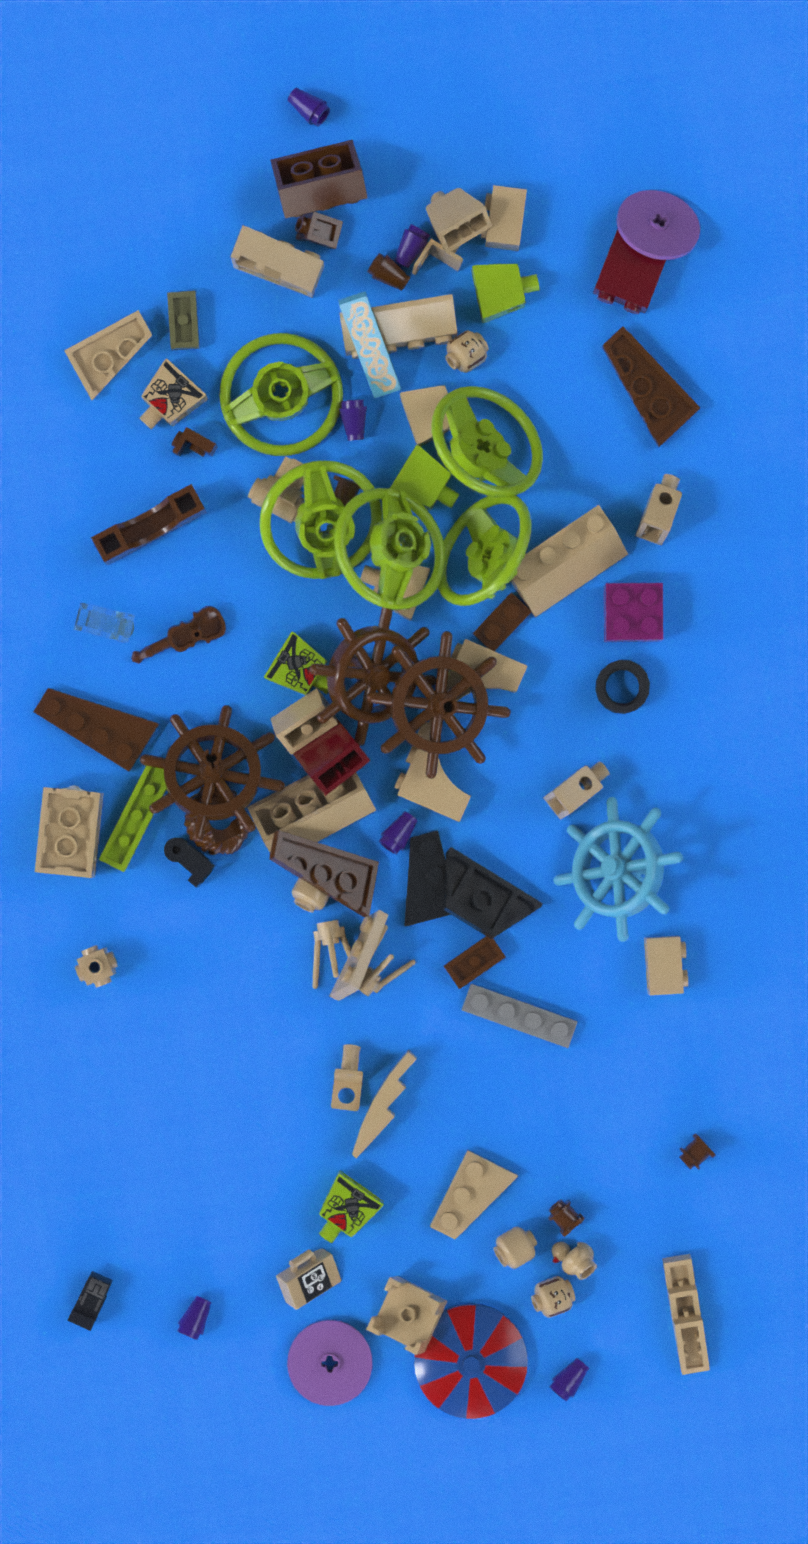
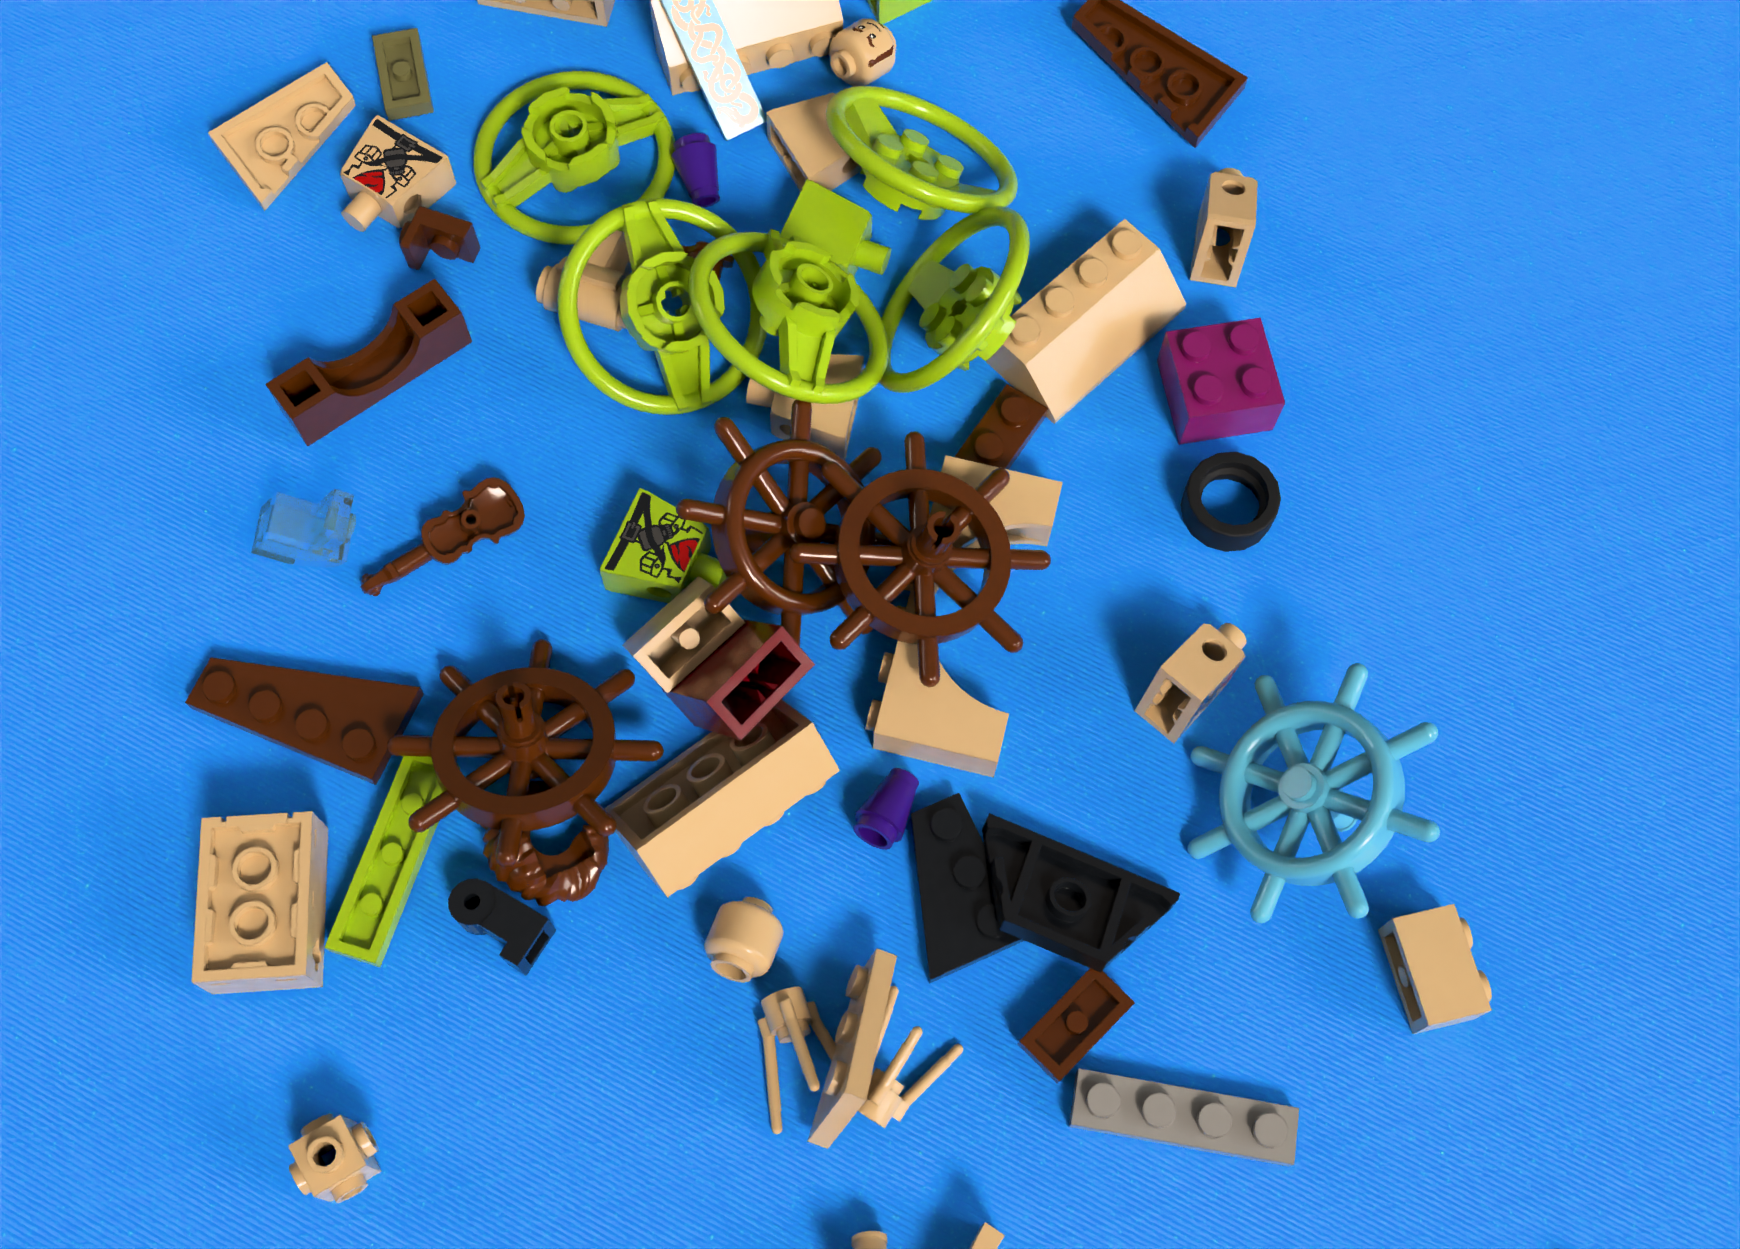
camera: 10 degrees left, 20 degrees down
(331, 870) = (768, 886): wing -> none

